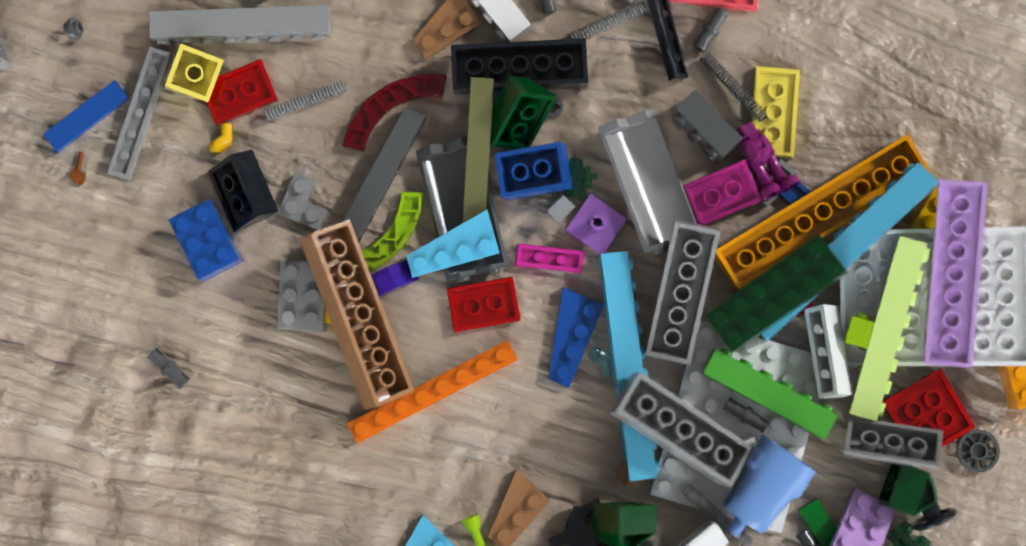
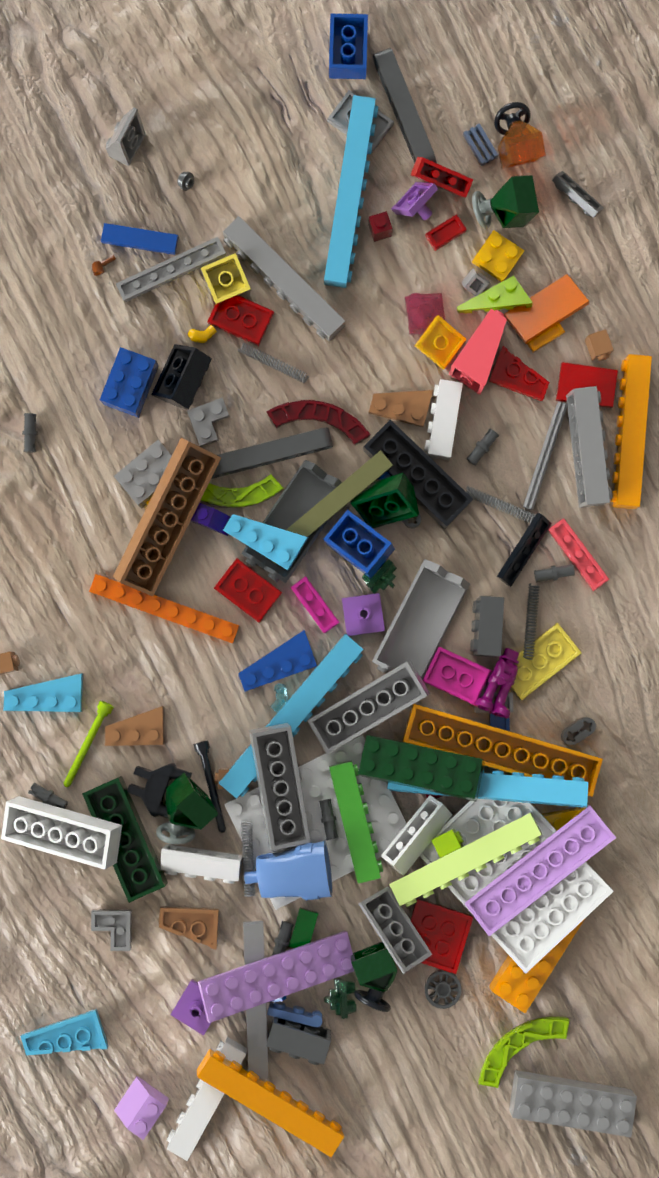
camera: 50 degrees right, 0 degrees up
(560, 208) = (351, 582): light grey slope -> none
(586, 470) = (202, 749): none -> black piece
(869, 134) = (581, 734): none -> dark grey beam

